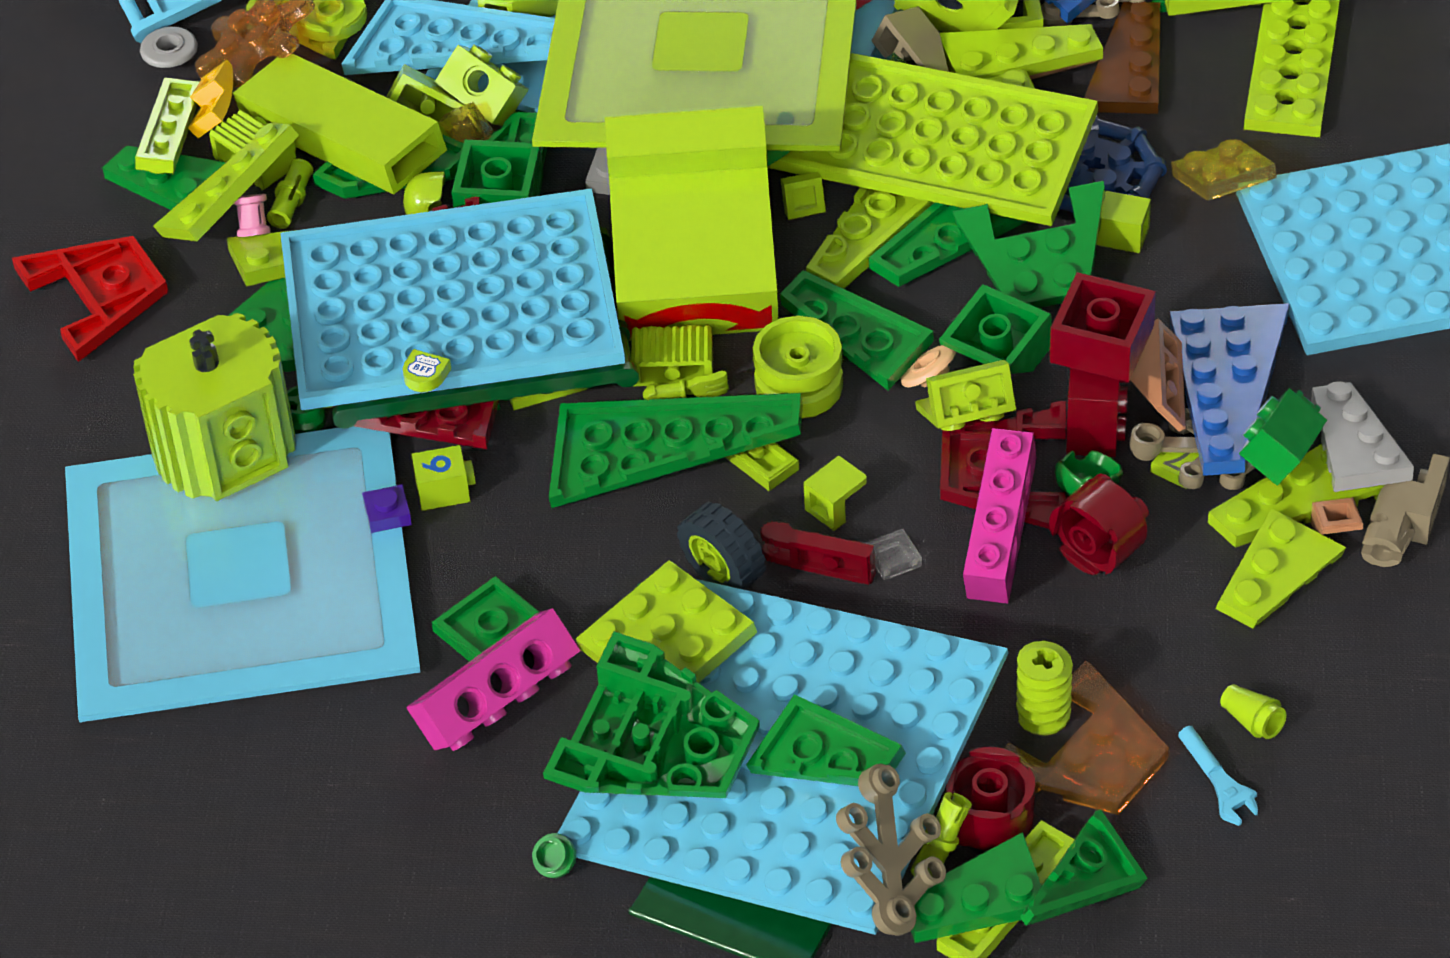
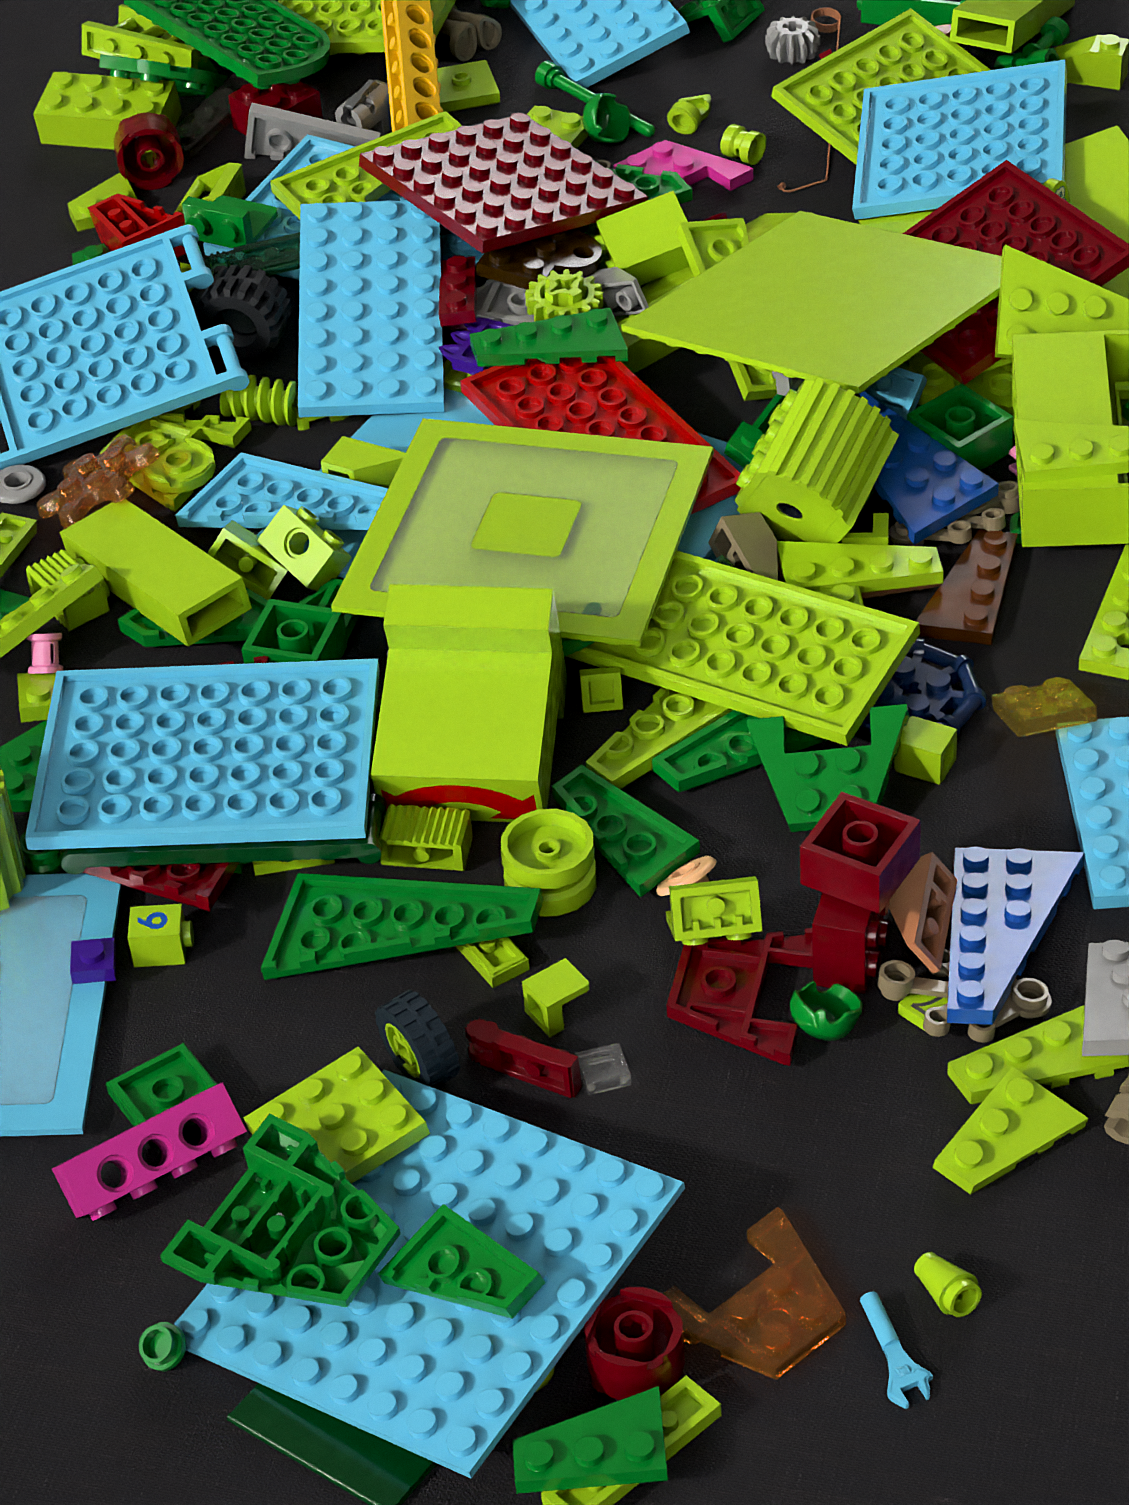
camera: 10 degrees right, 5 degrees down
(213, 98) = (40, 536): yellow slope -> none
(292, 187) = (80, 650): lime pin -> none
(423, 192) = (218, 645): lime hair -> none
(425, 371) = (156, 823): lime tile -> none
(466, 123) = (281, 584): clear yellow plate -> none
(700, 386) = (455, 871): lime piece -> none
(893, 906) = (497, 1391): dark tan plant -> none
(950, 816) = (569, 1379): lime pin -> none
(999, 329) = (760, 844): green slope -> none
(1000, 516) = (718, 1040): dark pink brick -> none
(1044, 687) = (721, 1230): lime piece -> none
(1088, 872) = (723, 1440): green wing -> none
(1099, 525) = (822, 1063): dark red brick -> none
(1282, 434) = (1039, 989): green brick -> none
(1336, 516) = (1083, 1083): nougat slope -> none

